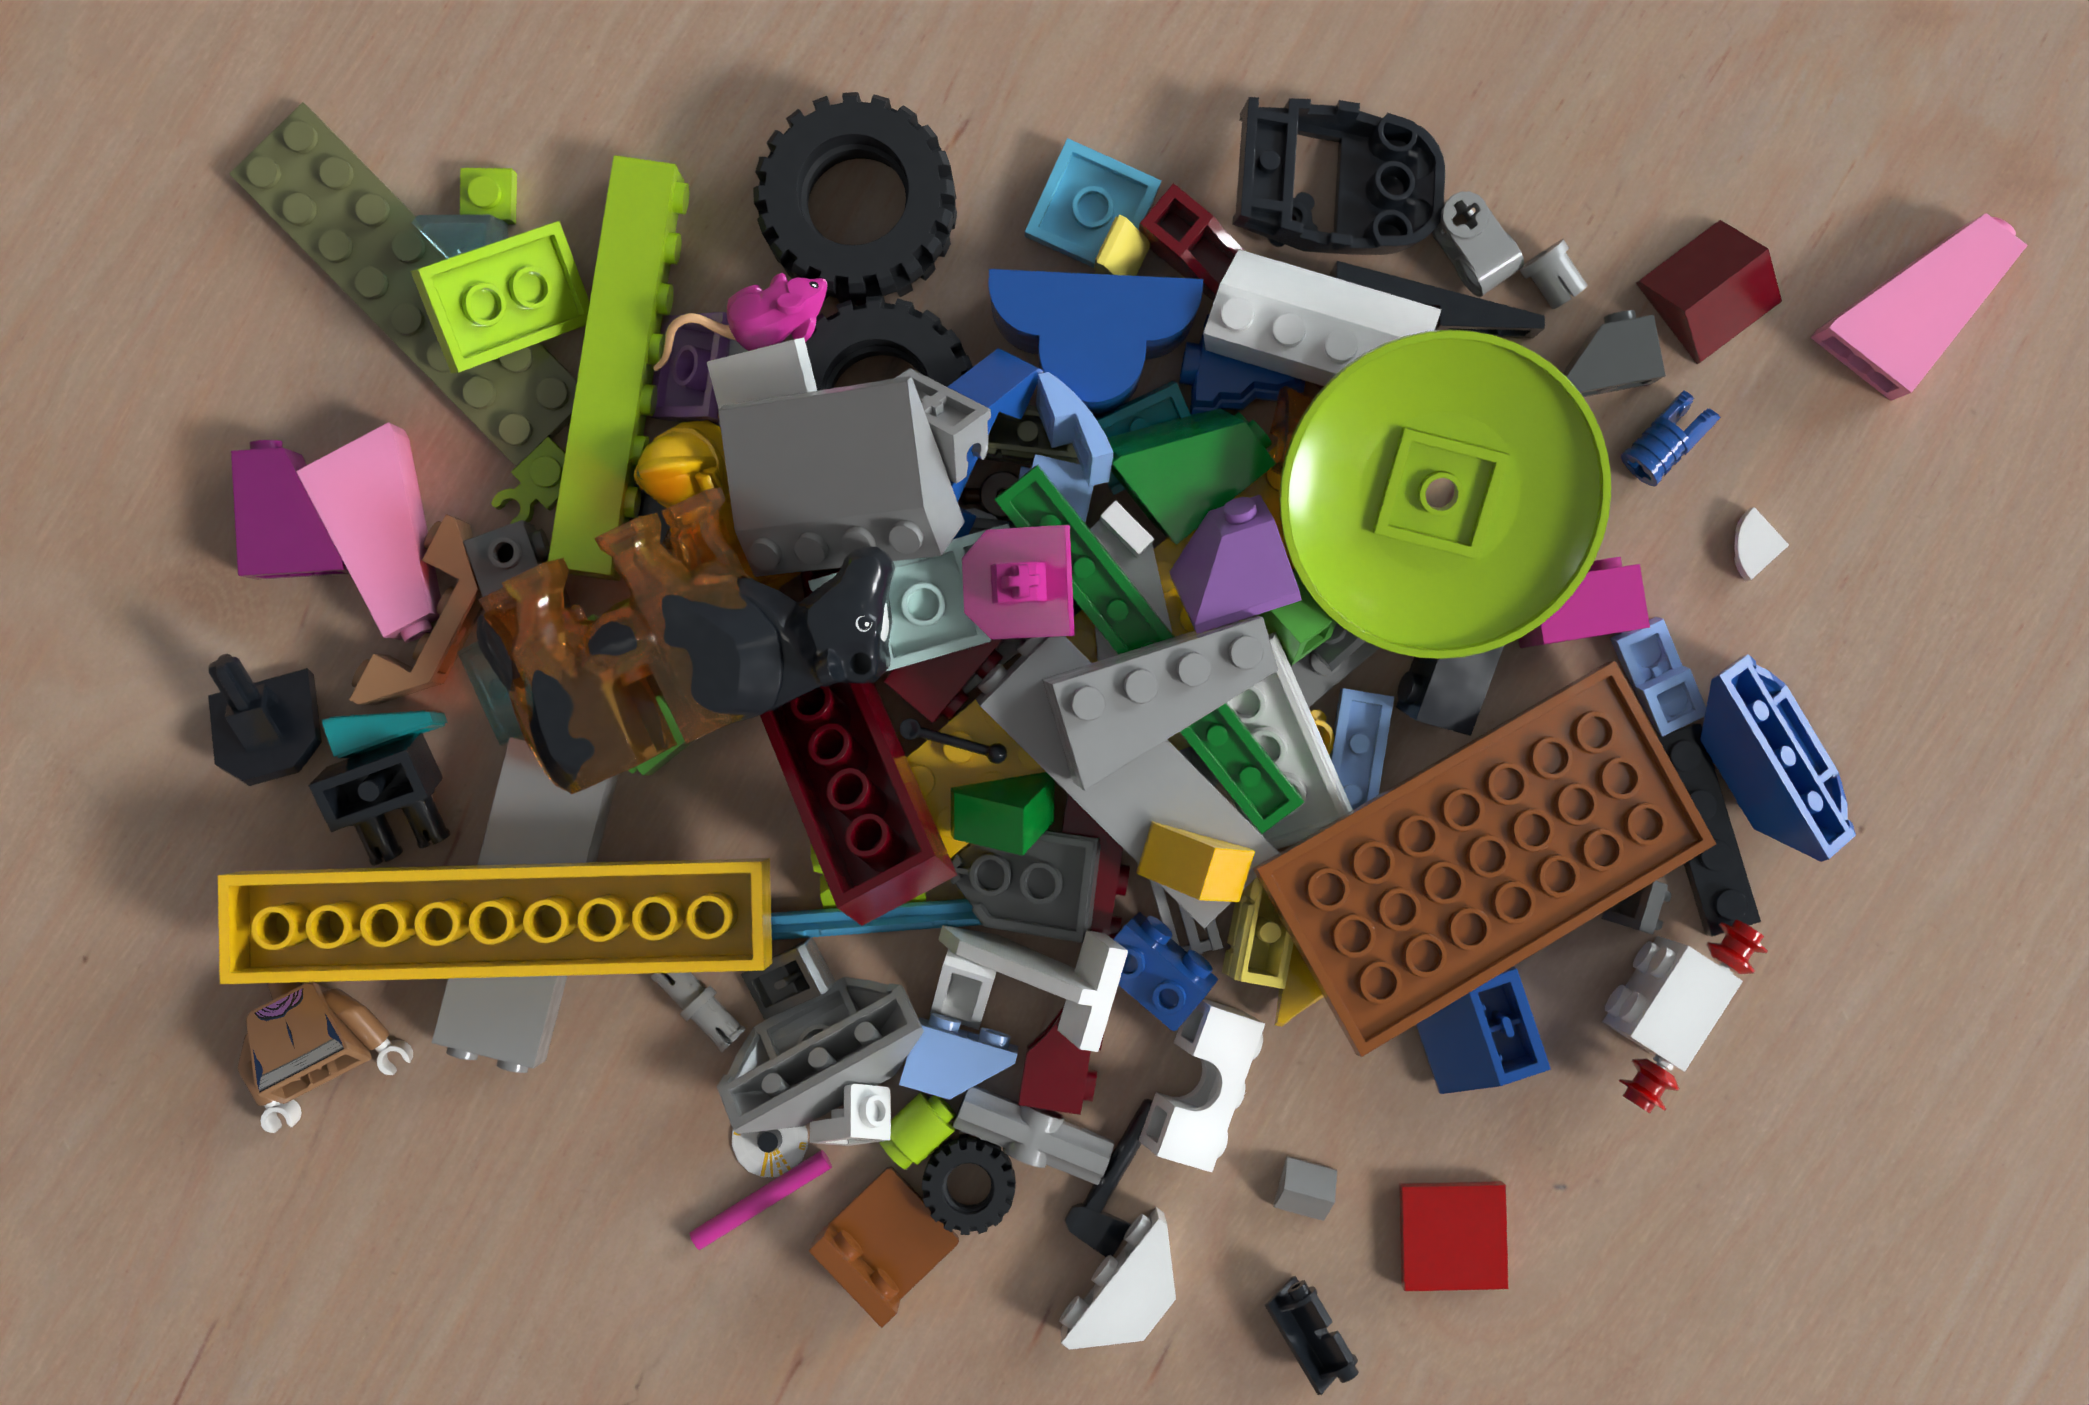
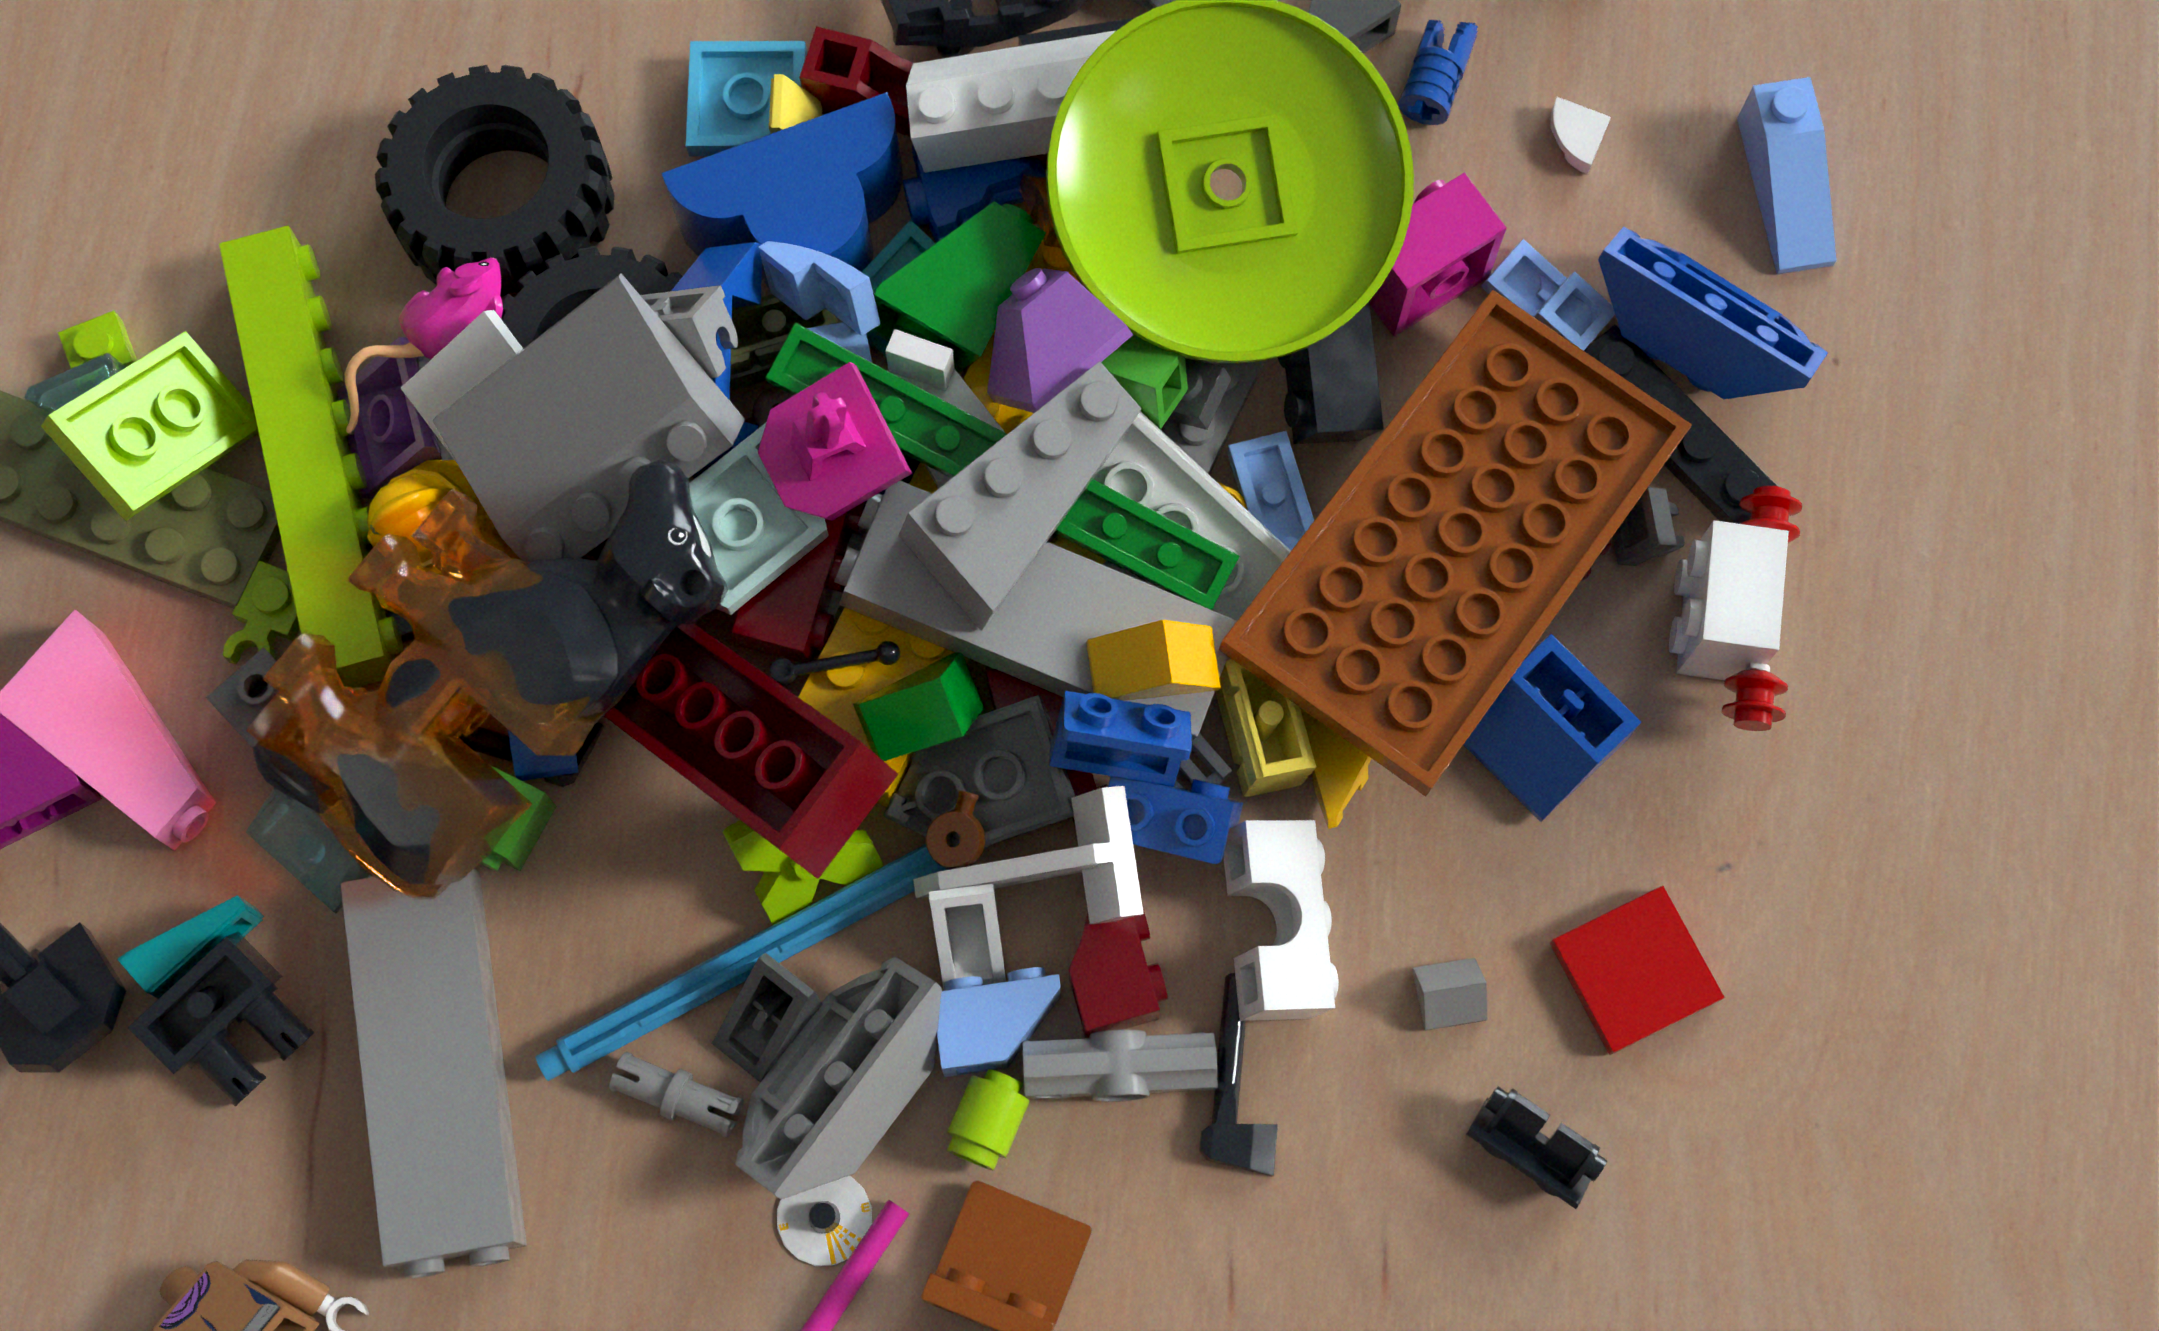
camera: 30 degrees left, 15 degrees down
(387, 678) = (182, 888): medium nougat slope -> none
(494, 921) = (395, 1077): yellow brick -> none
(862, 1121) = (917, 1138): white bracket -> none
(958, 1215) = (1073, 1115): black tyre -> none
(995, 908) = (961, 822): none -> reddish brown piece
(1128, 1290) = (1309, 1190): white slope -> none
(1144, 910) = (1121, 738): none -> blue bracket
(1909, 661) = (1790, 173): none -> light blue slope

